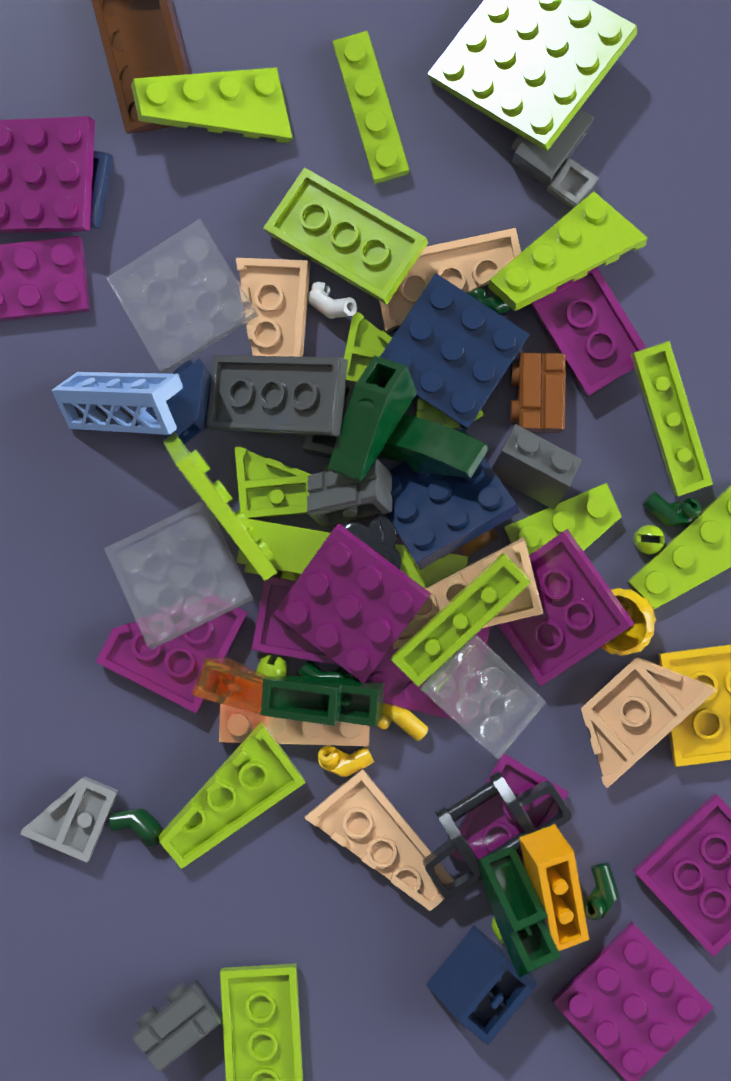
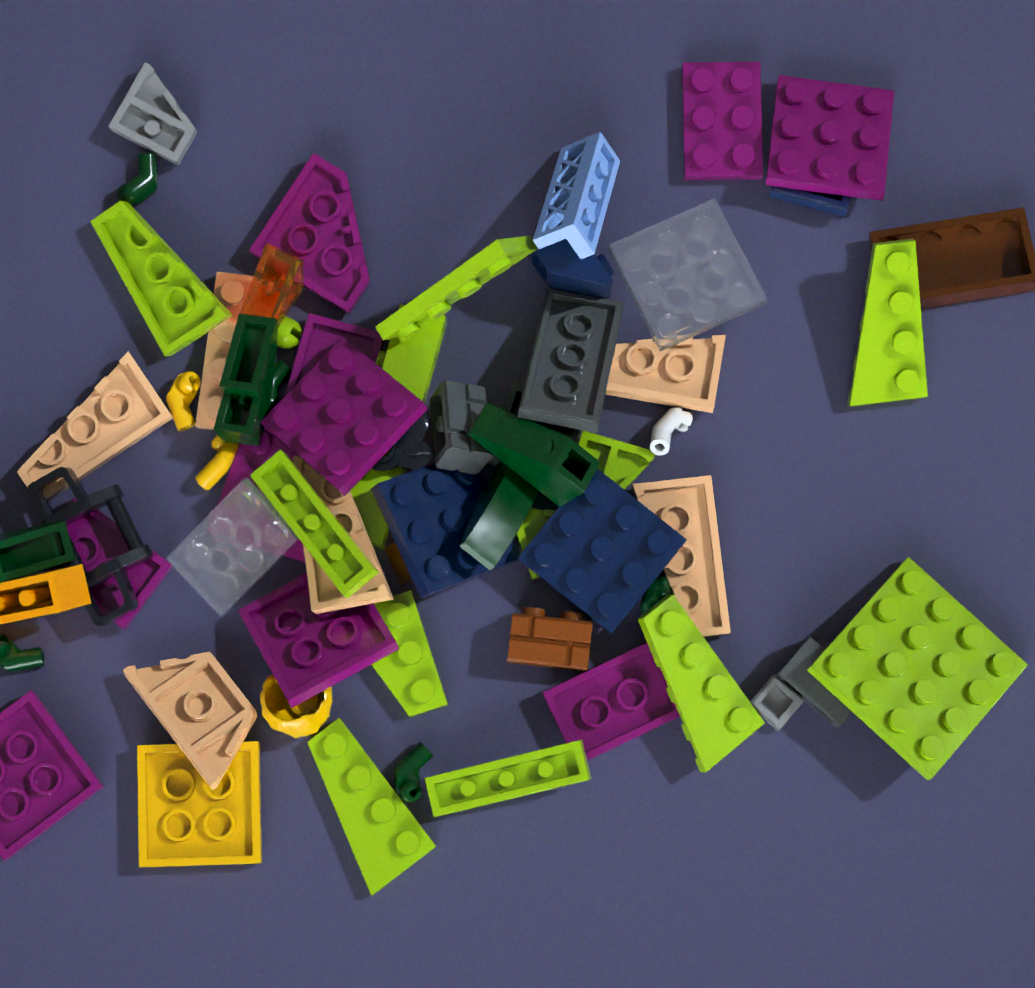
camera: 90 degrees right, 5 degrees down
(178, 574) = (392, 242): clear plate -> none
(269, 486) = (479, 346): lime wing -> none
(346, 235) = (736, 450): lime plate -> none
(370, 107) = (877, 493): lime plate -> none
(535, 467) = (470, 626): dark grey brick -> none
(646, 547) = (391, 745): lime hinge -> none

